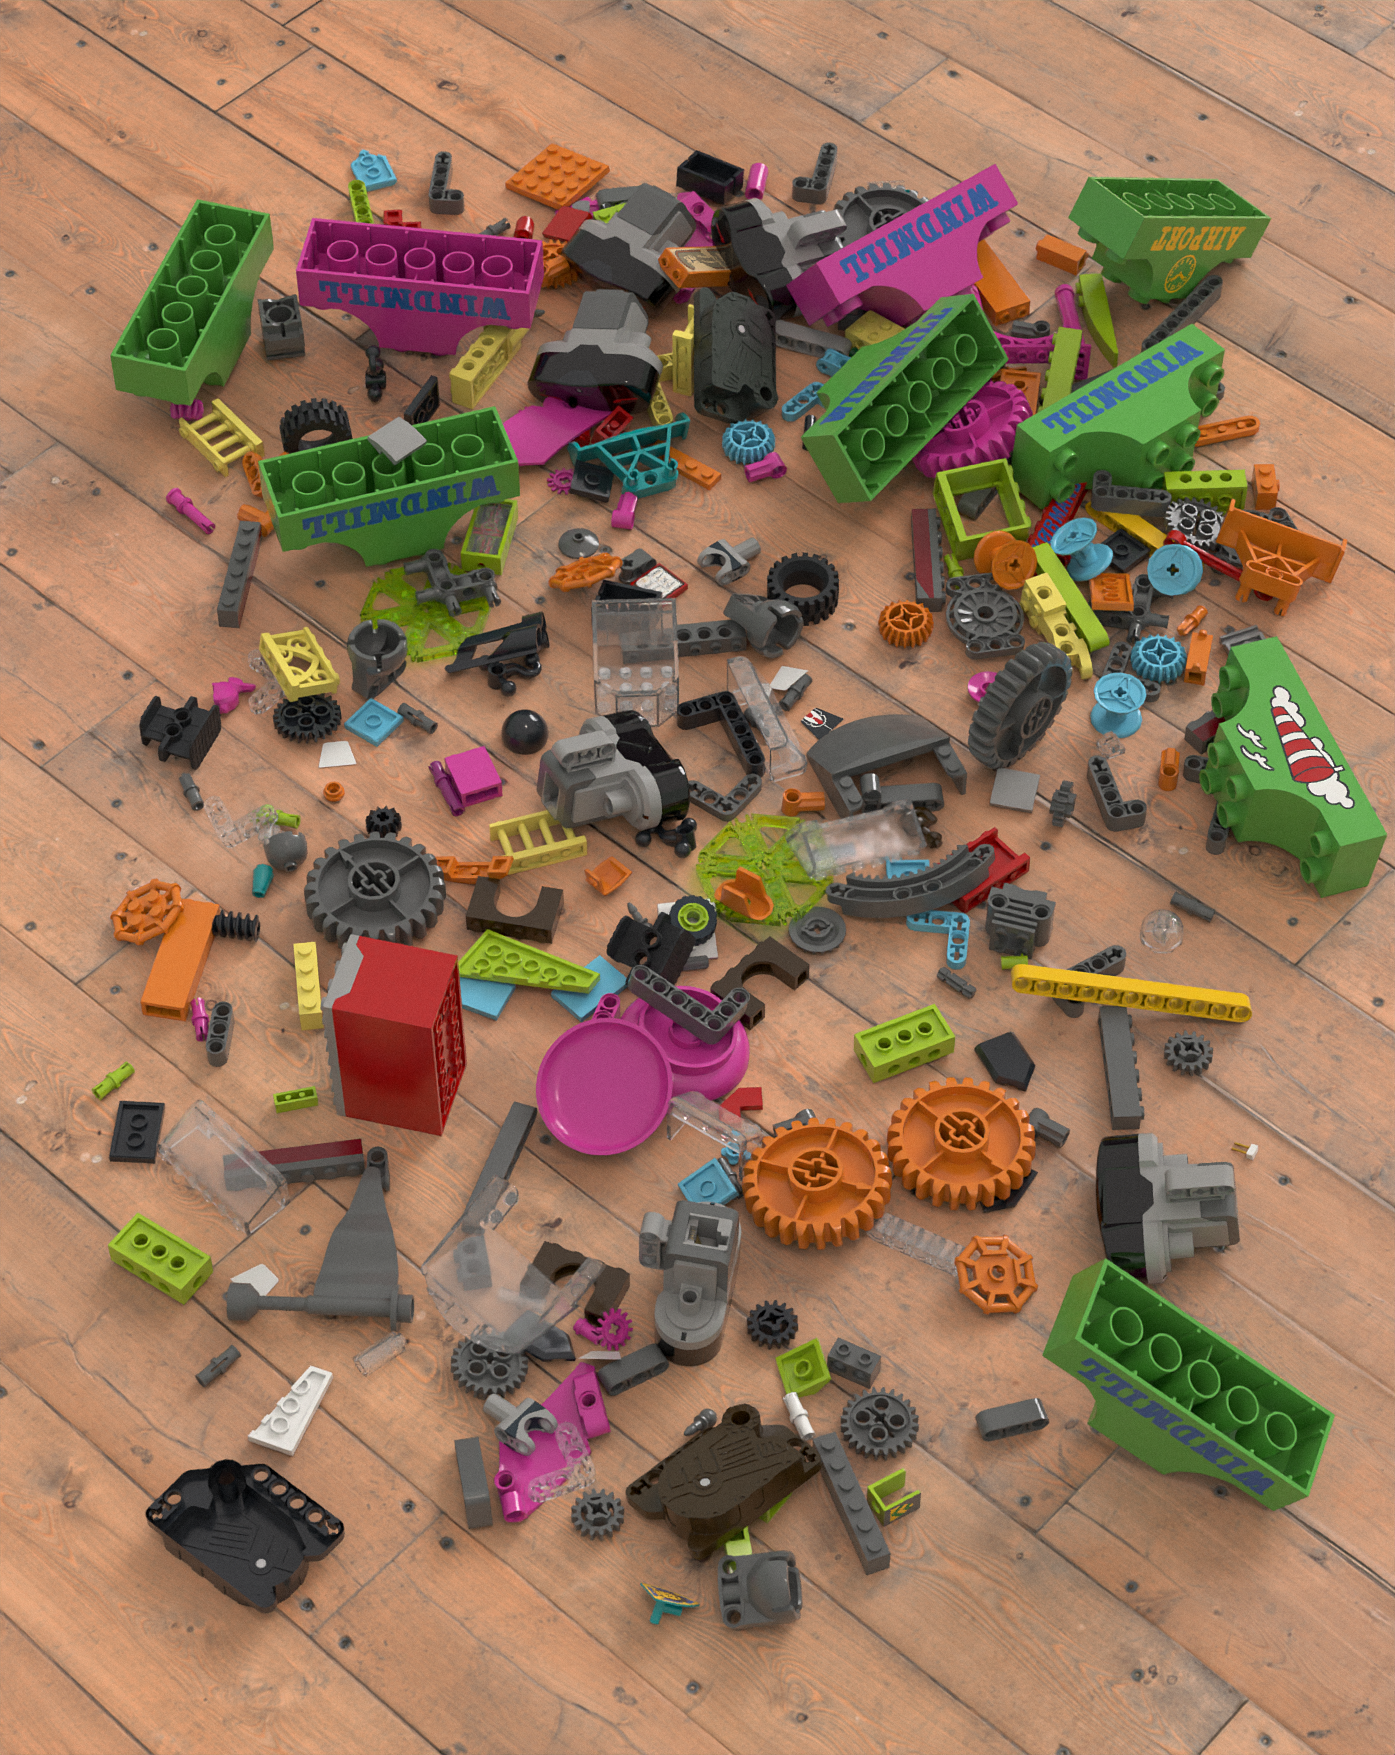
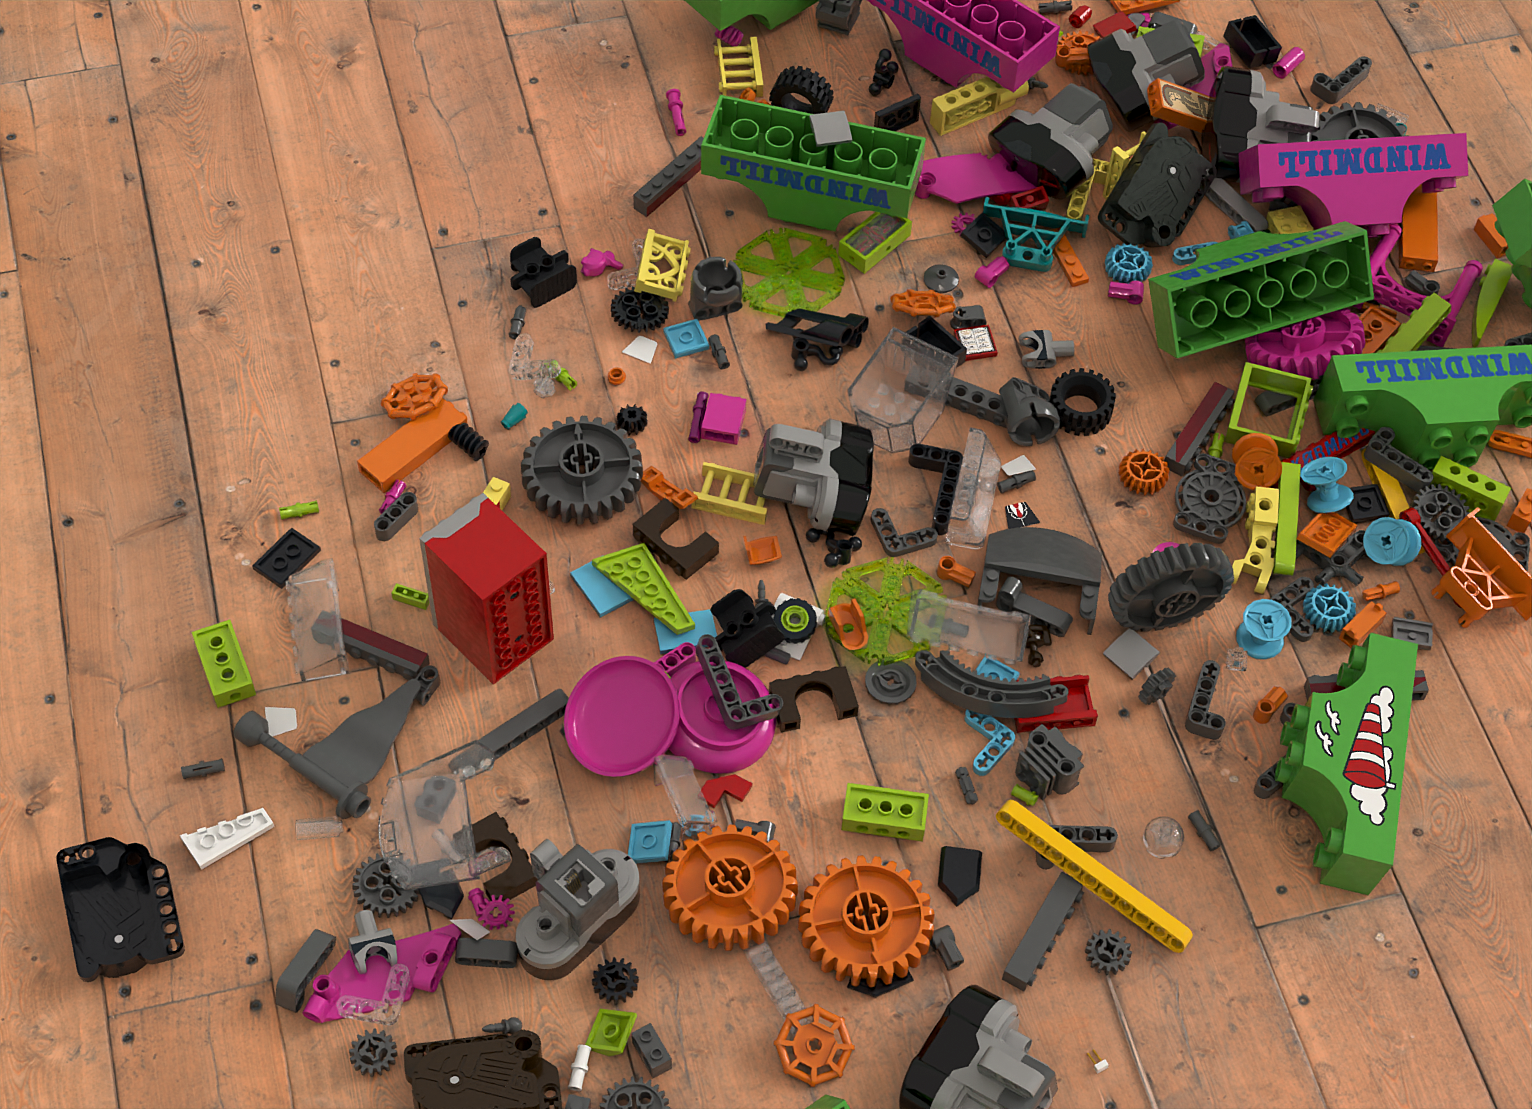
camera: 30 degrees right, 5 degrees up
(286, 850) = (544, 403): dark grey cylinder -> none
(451, 588) = (815, 266): dark grey pin -> none
(524, 732) = (788, 404): black piece -> none

